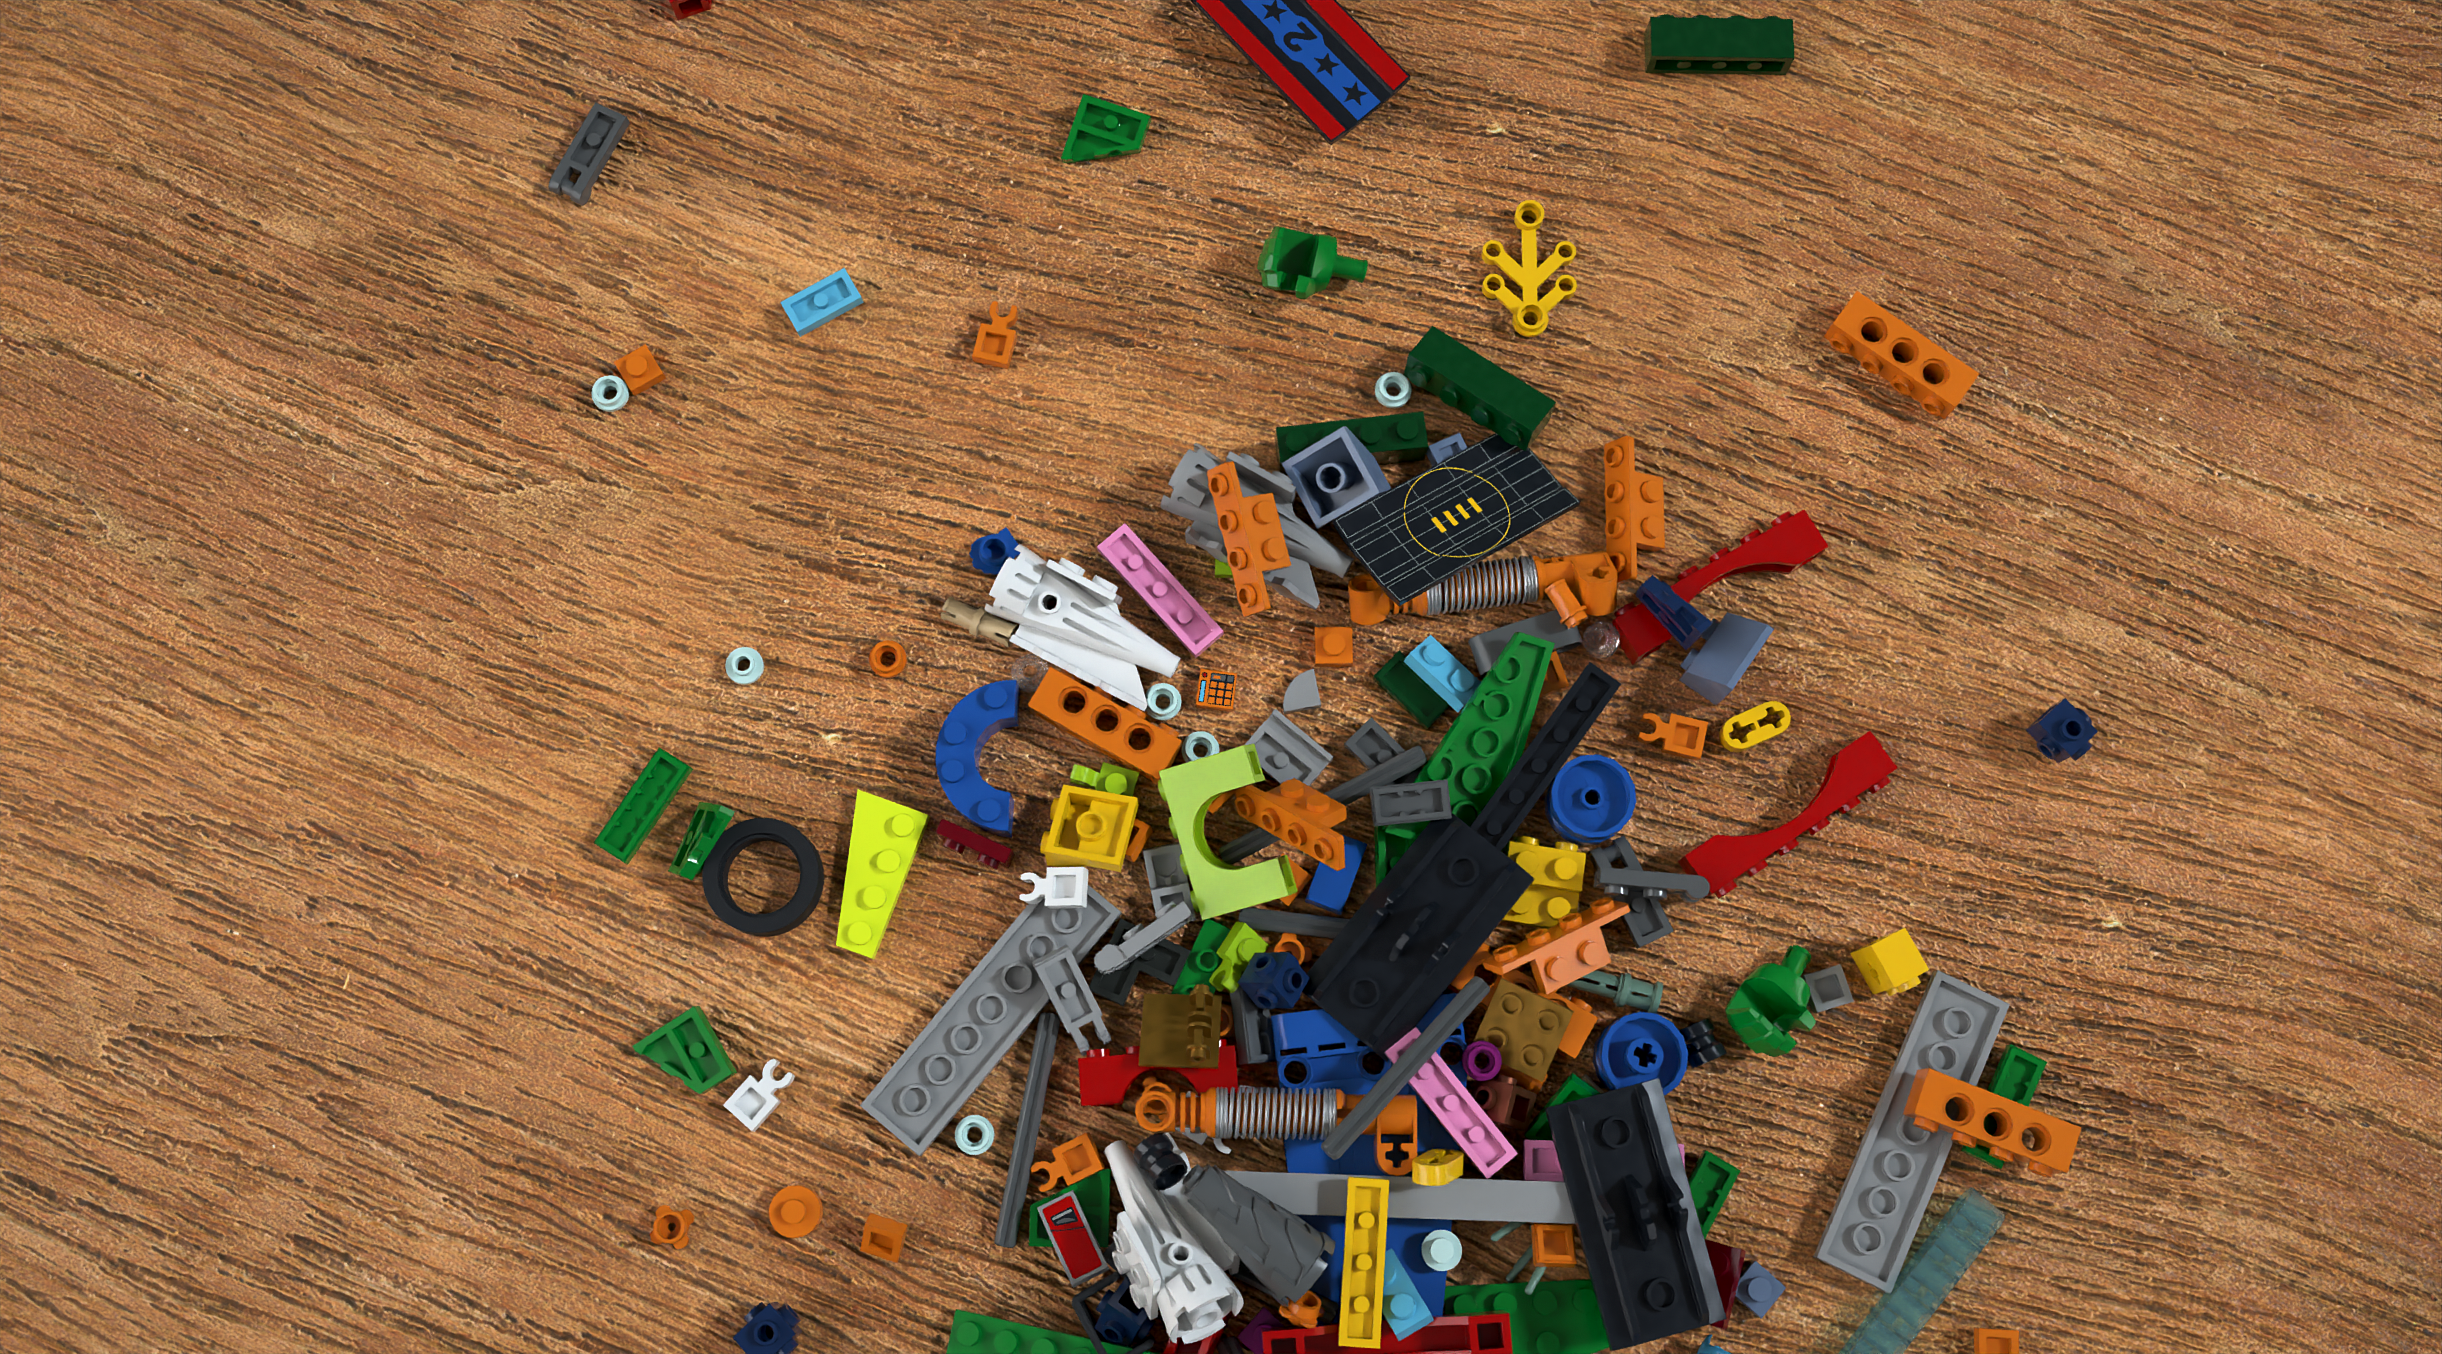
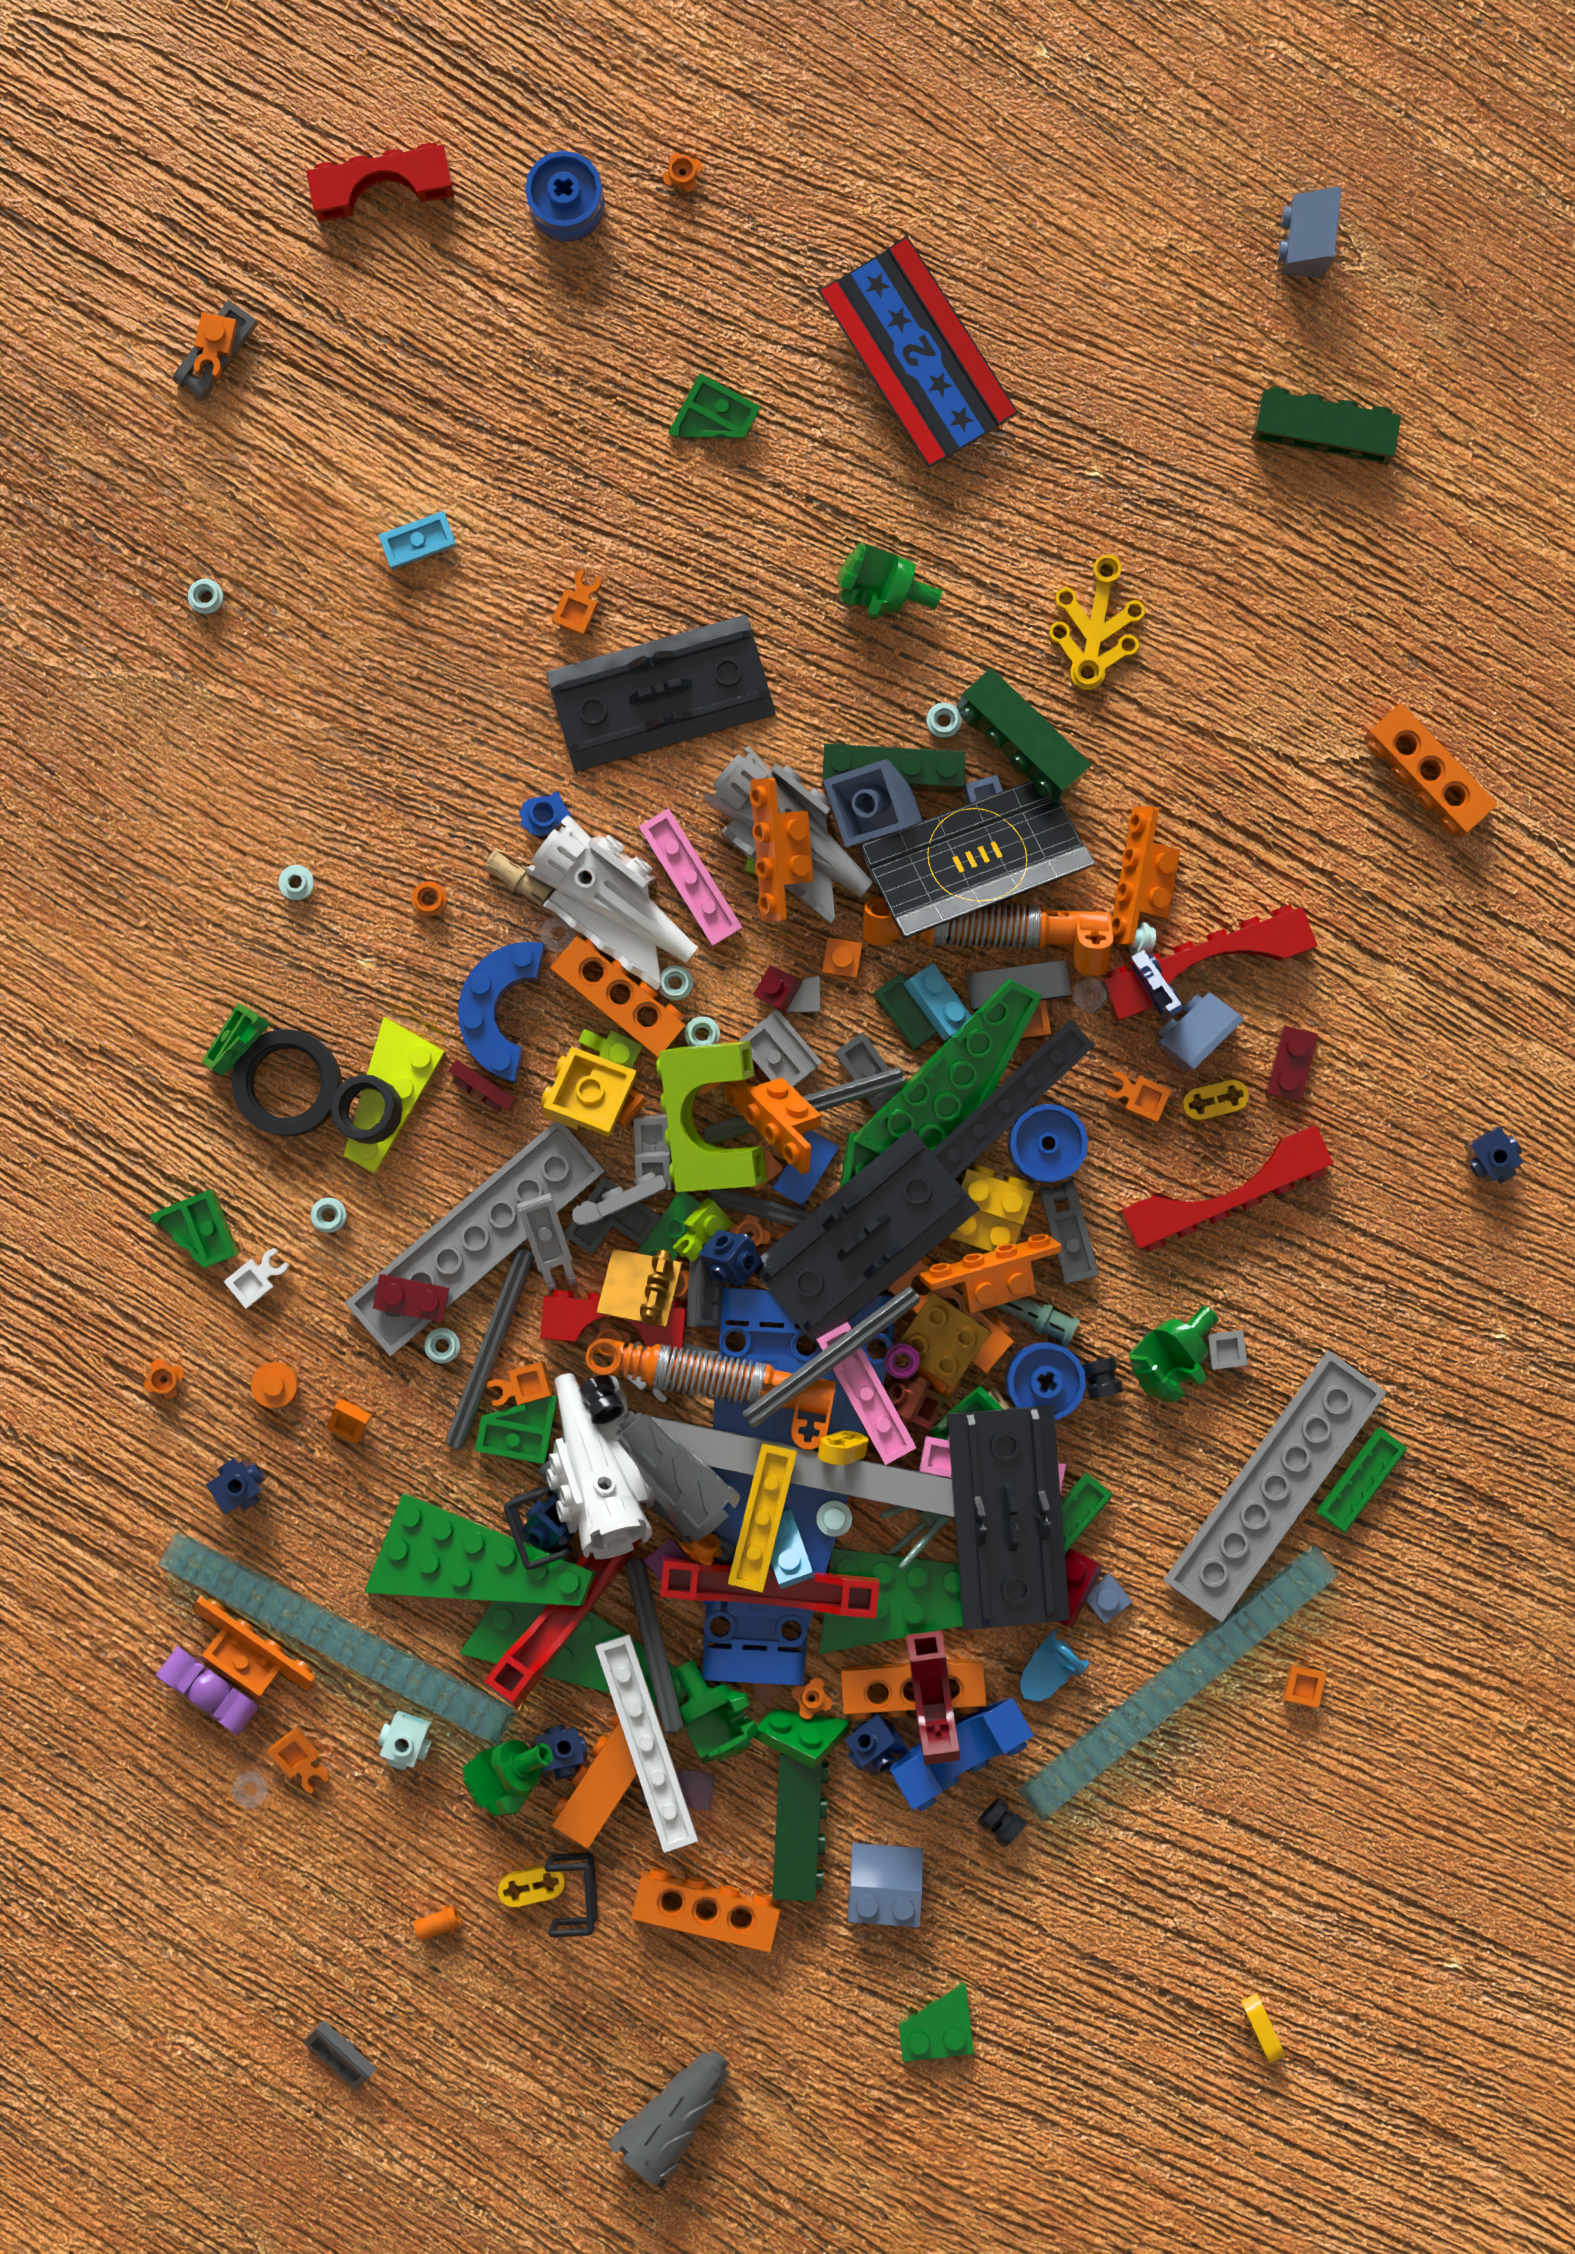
camera: 10 degrees right, 10 degrees up
(584, 139) = (214, 338): none -> orange plate
(639, 370) = (236, 577): orange plate -> none
(643, 806) = (186, 998): green plate -> none
(818, 1007) = (317, 1215): none -> light aqua plate
(829, 876) = (345, 1095): none -> black tyre
(932, 1086) = (411, 1298): none -> dark red plate
(1061, 889) = (553, 1142): white plate -> none
(1073, 1238) = (514, 1451): slope -> none
(1096, 413) = (660, 693): none -> black hinge
(1216, 690) = (726, 980): orange tile -> none
(1271, 688) = (777, 988): none -> dark red plate
(1410, 802) = (881, 1121): dark grey plate -> none
(1553, 1245) = (932, 1531): orange tile -> none
(1566, 604) = (1061, 959): orange pin -> none
(1645, 569) = (1144, 939): none -> light aqua plate
(1652, 884) = (1087, 1231): dark grey plate -> none
(1826, 675) = (1291, 1064): none -> dark red plate
(1890, 963) = (1285, 1338): yellow brick -> none
(2053, 1137) = (1393, 1514): orange brick -> none

